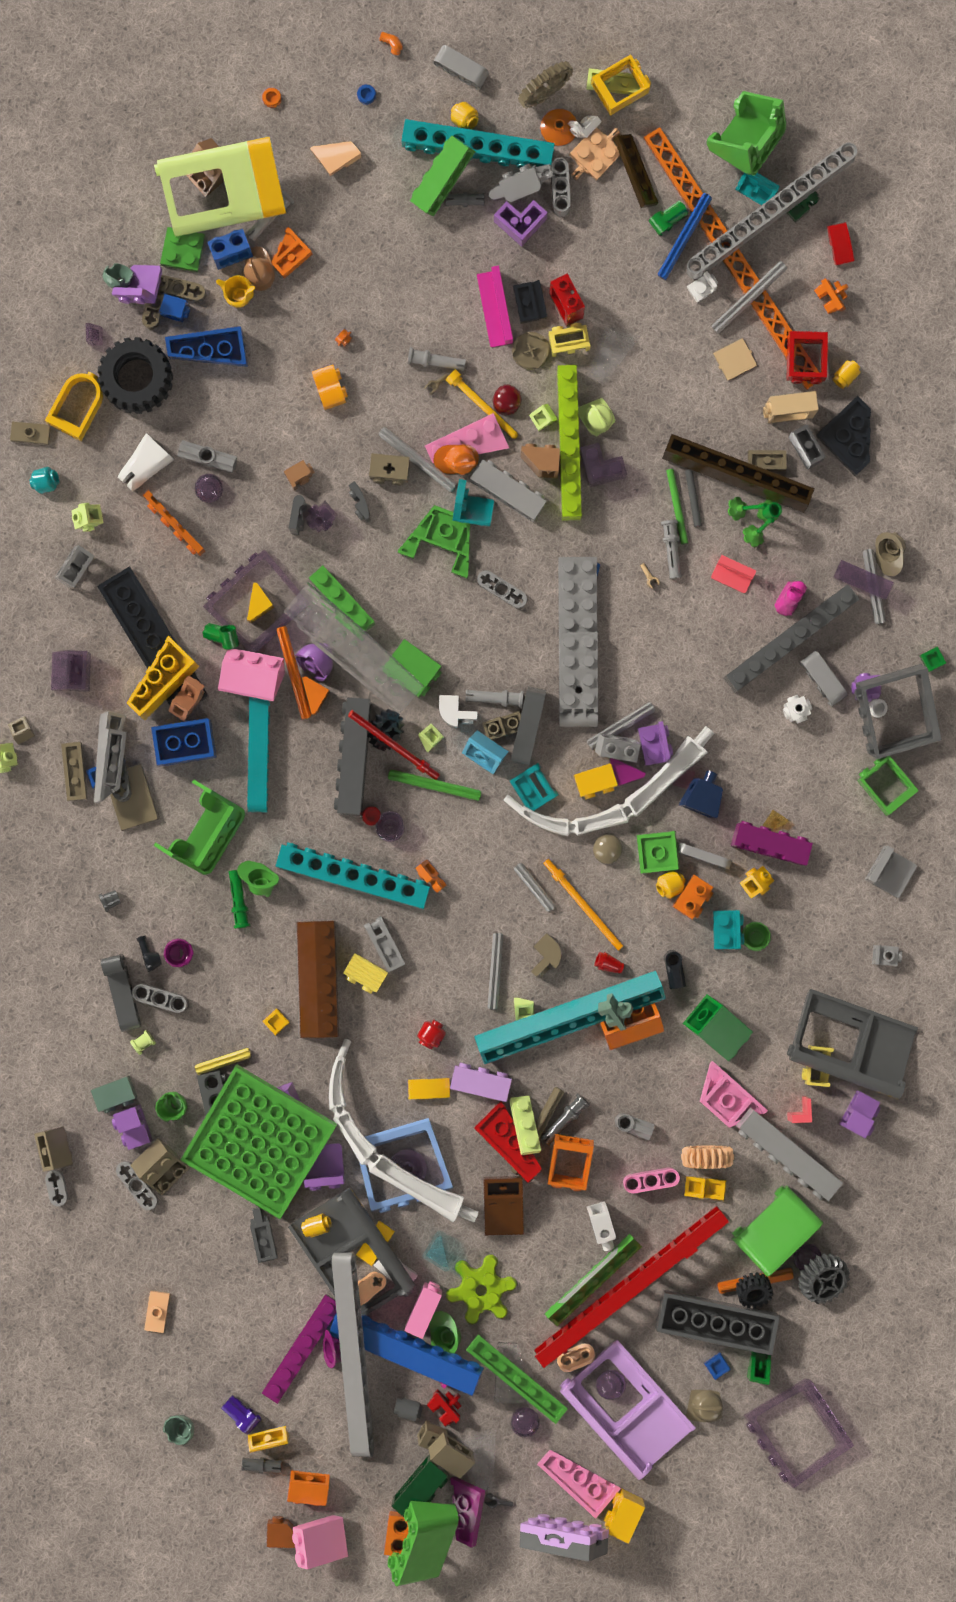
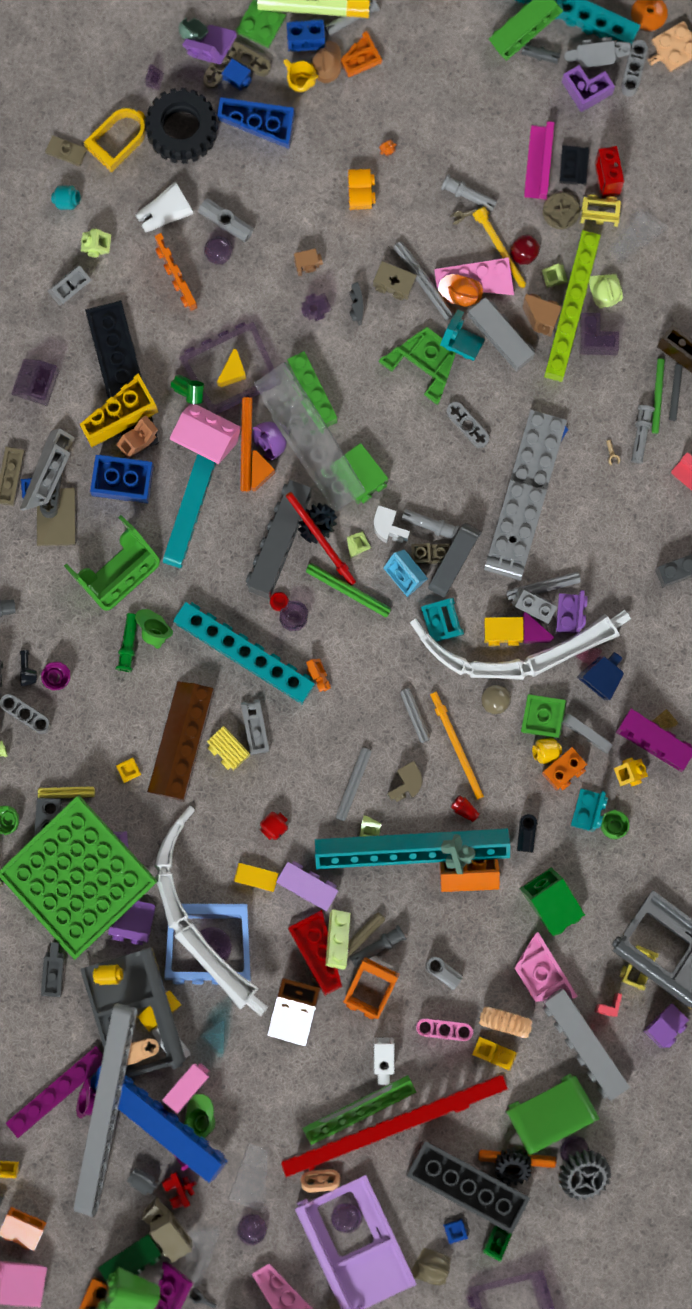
camera: 15 degrees right, 5 degrees down
(296, 519) = (296, 293): dark grey plate -> none
(482, 1276) = (262, 1087): lime plate -> none
(516, 1379) = (256, 1183): bright green plate -> none
(587, 126) = (674, 19): white bracket -> none

